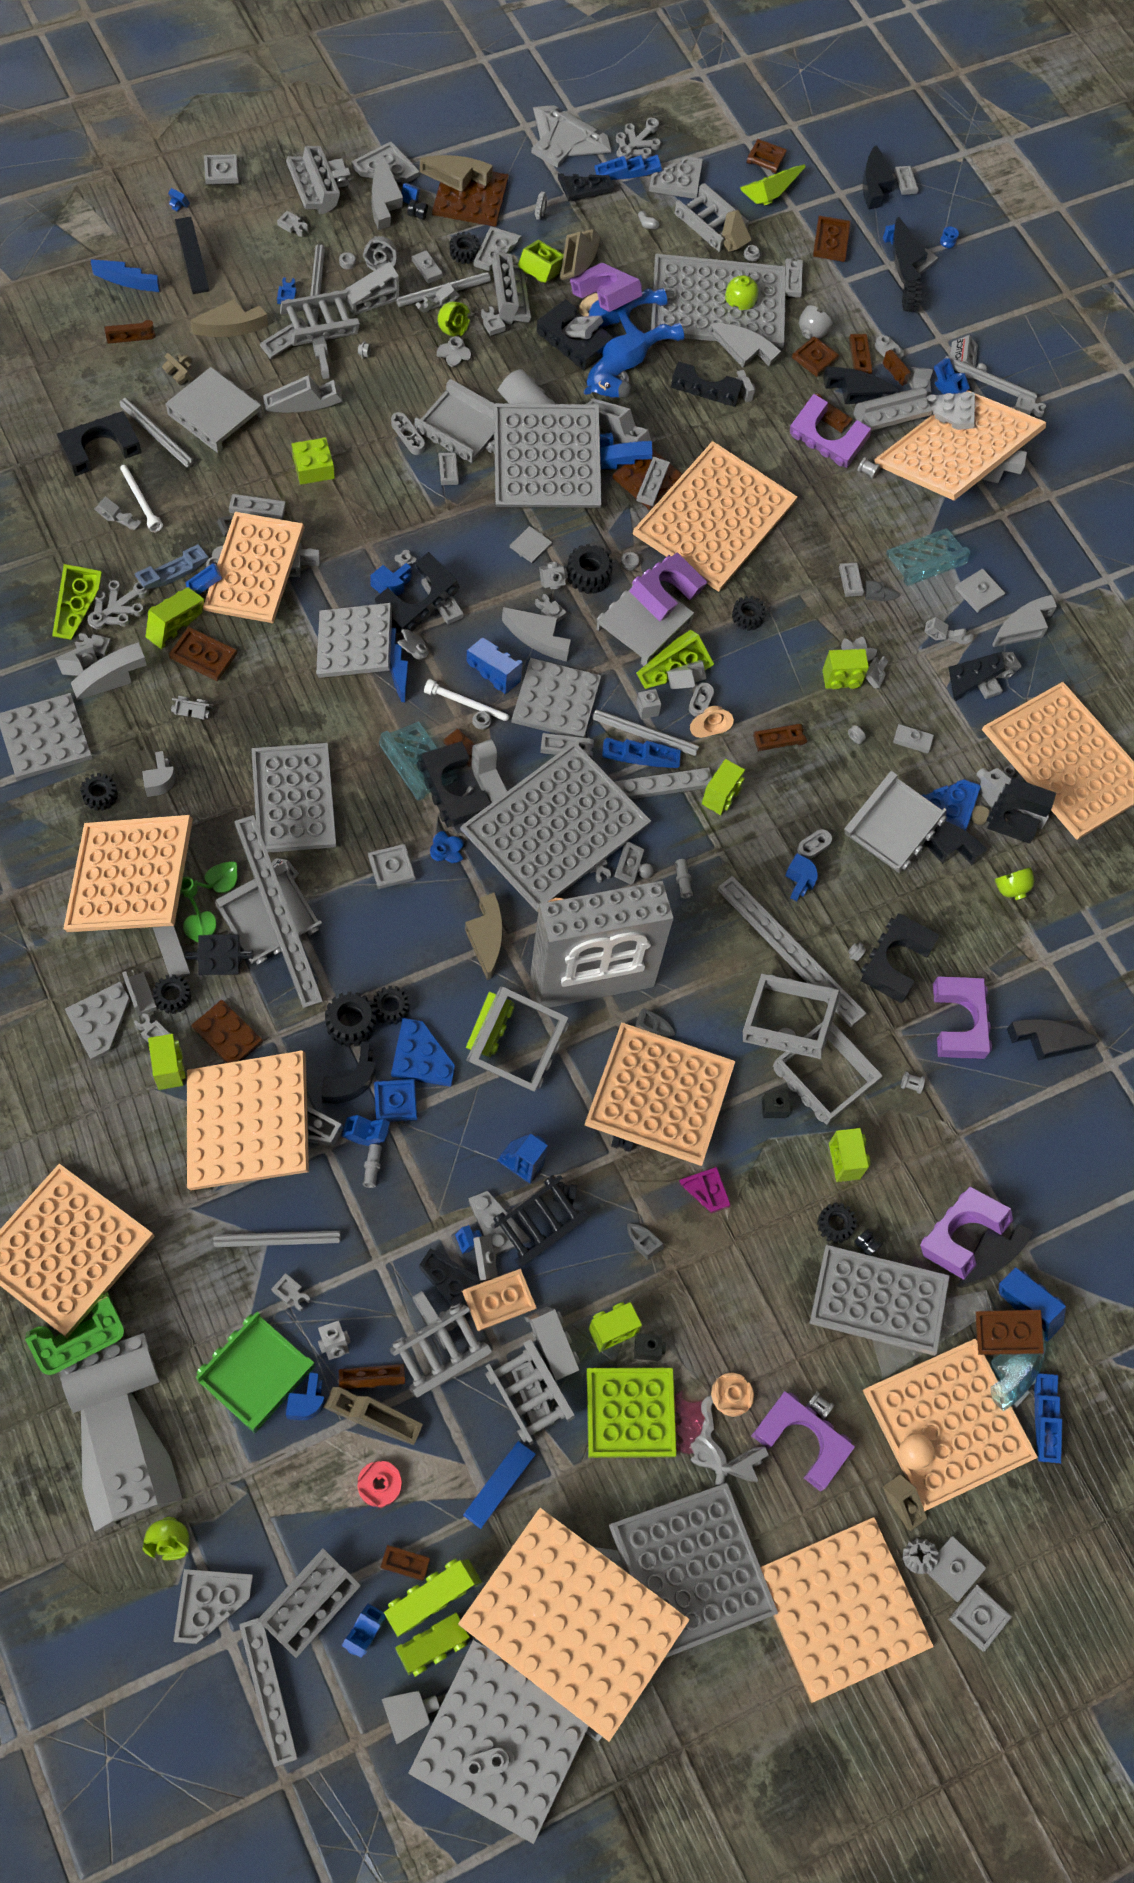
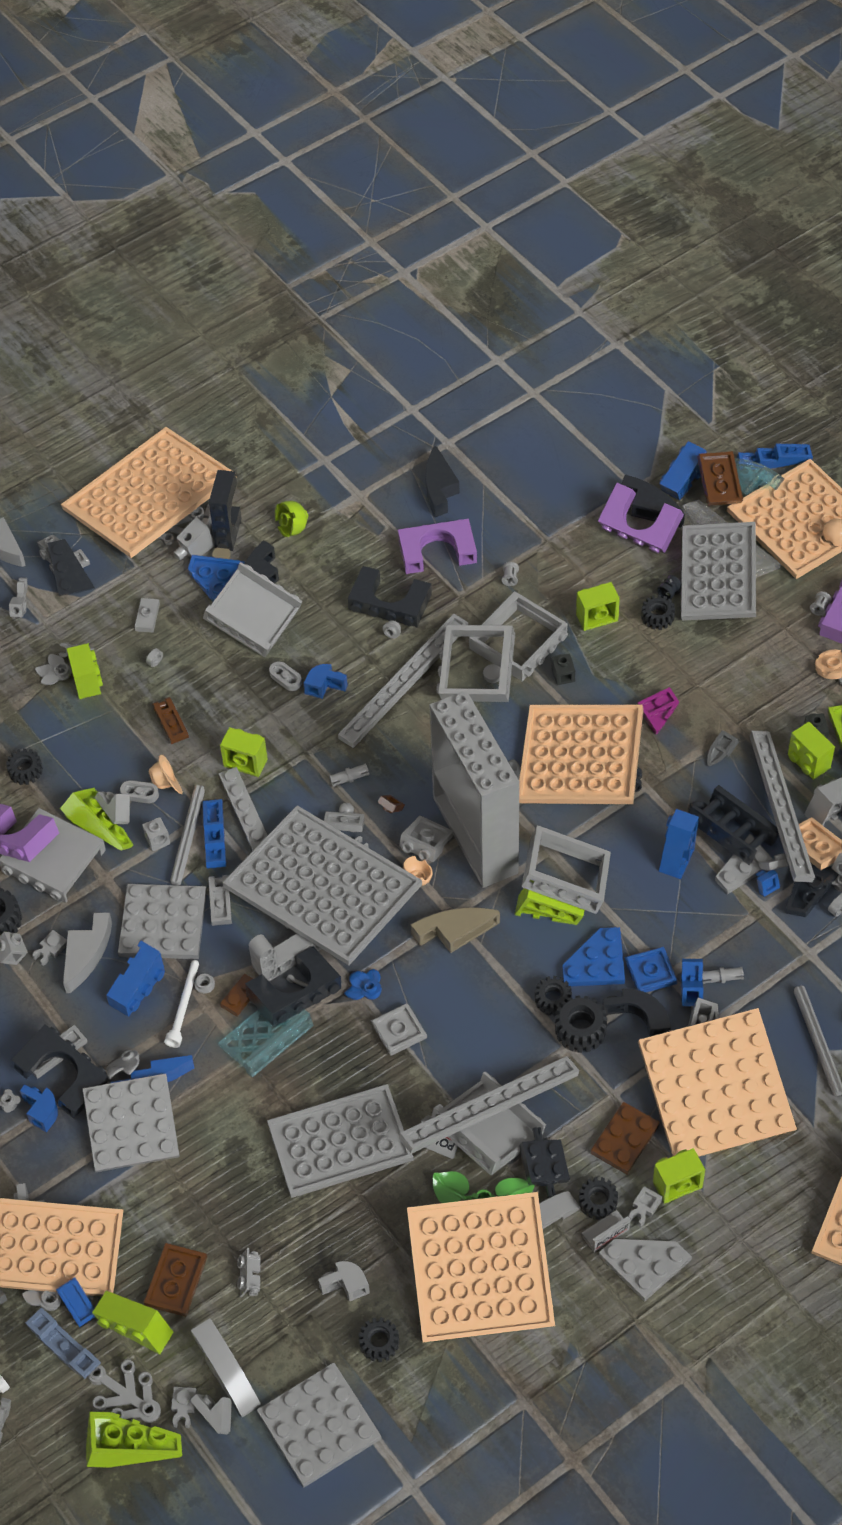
camera: 90 degrees left, 10 degrees down
(550, 1274) = (782, 807): none -> light grey plate

